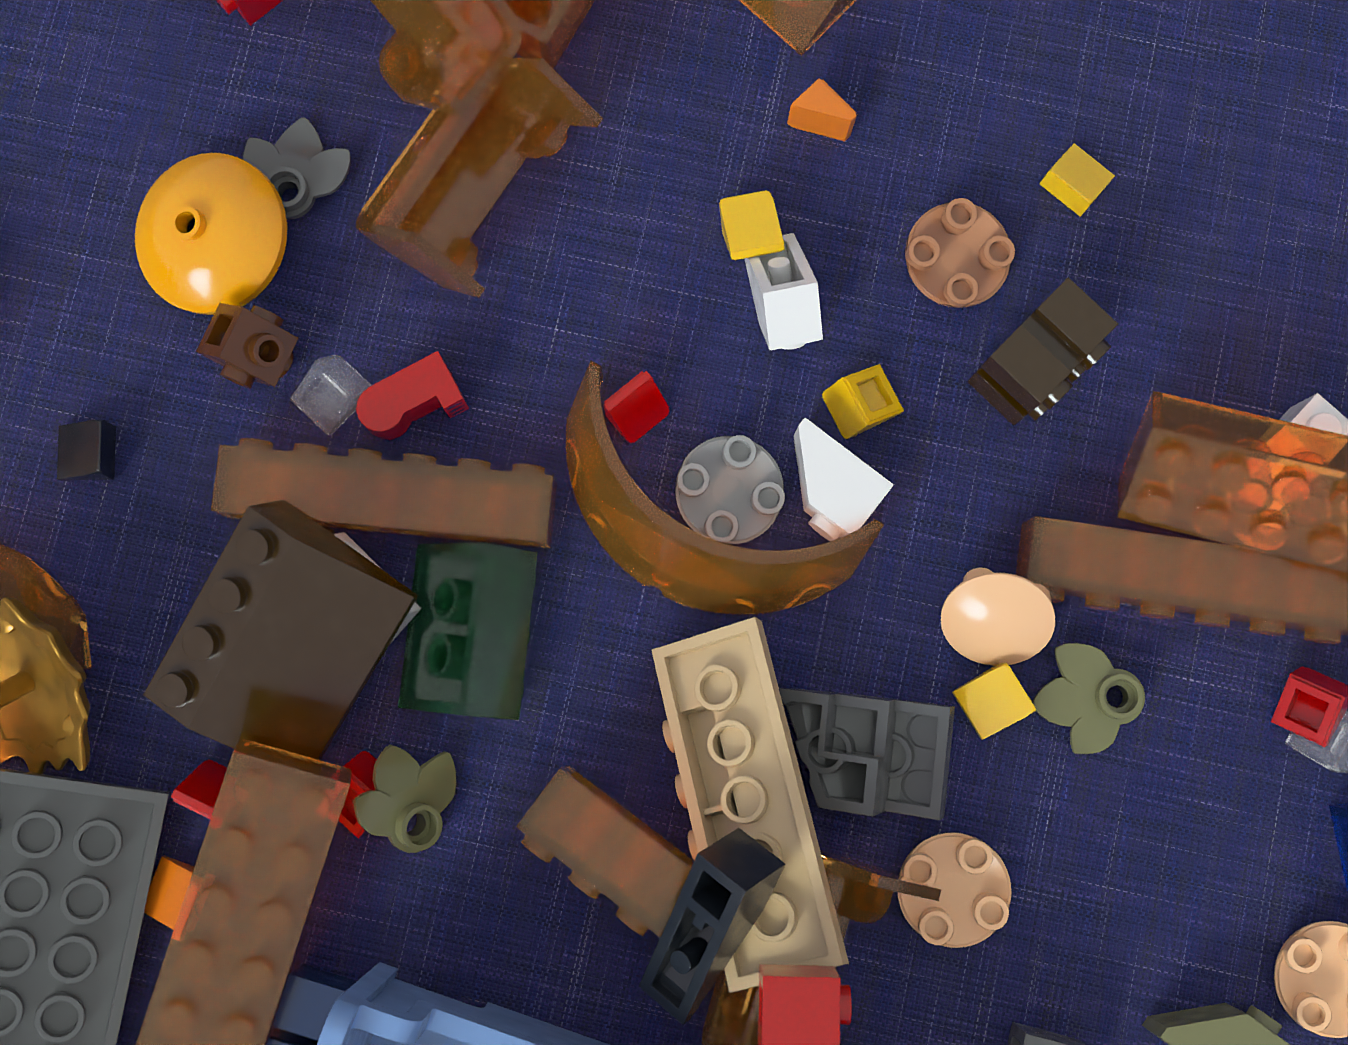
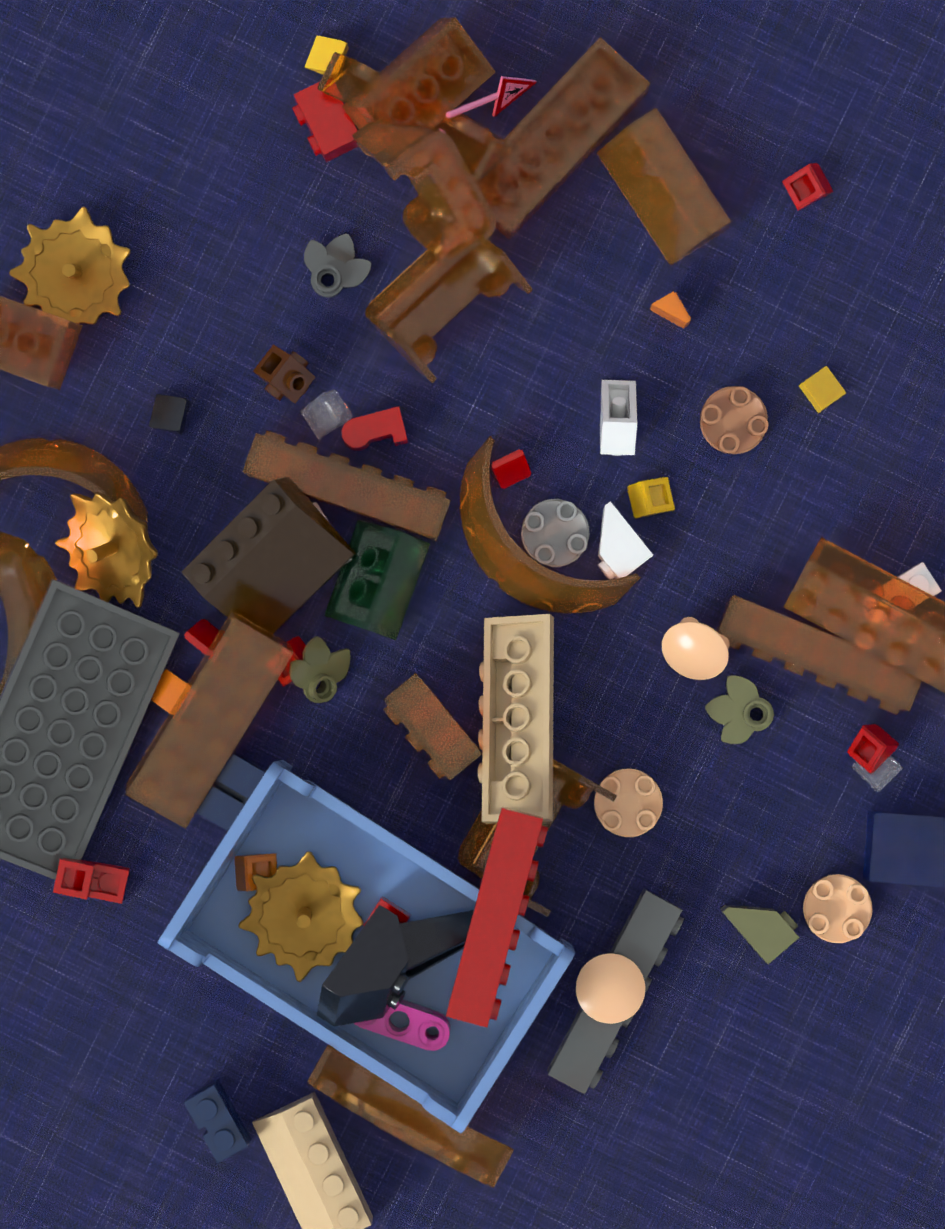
camera: 20 degrees right, 5 degrees up
(234, 239) = (294, 300): light orange dish -> none
(709, 921) = (480, 777): black slope -> none
(750, 225) = (609, 372): yellow slope -> none
(873, 751) = (601, 710): dark grey slope -> none
(994, 700) = (681, 698): yellow slope -> none
(1044, 353) = (763, 496): dark brown brick -> none

